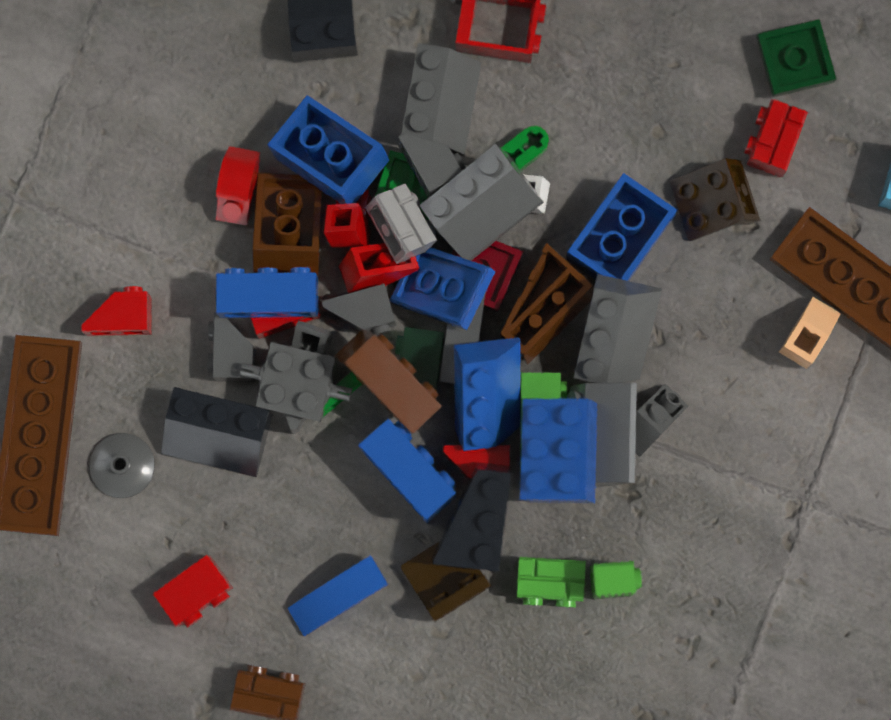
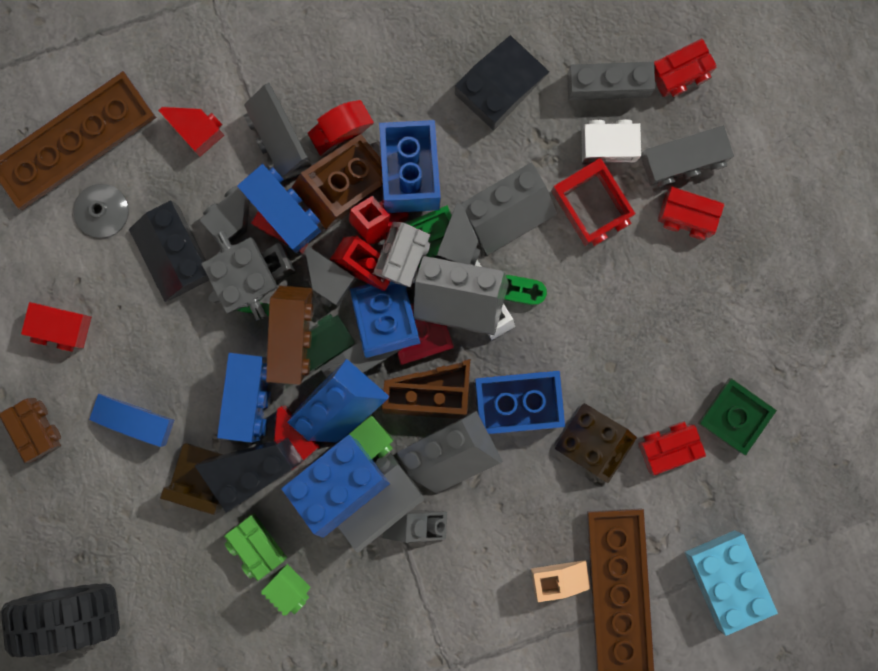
camera: 45 degrees right, 5 degrees up
(194, 243) = (276, 134): none -> dark grey slope

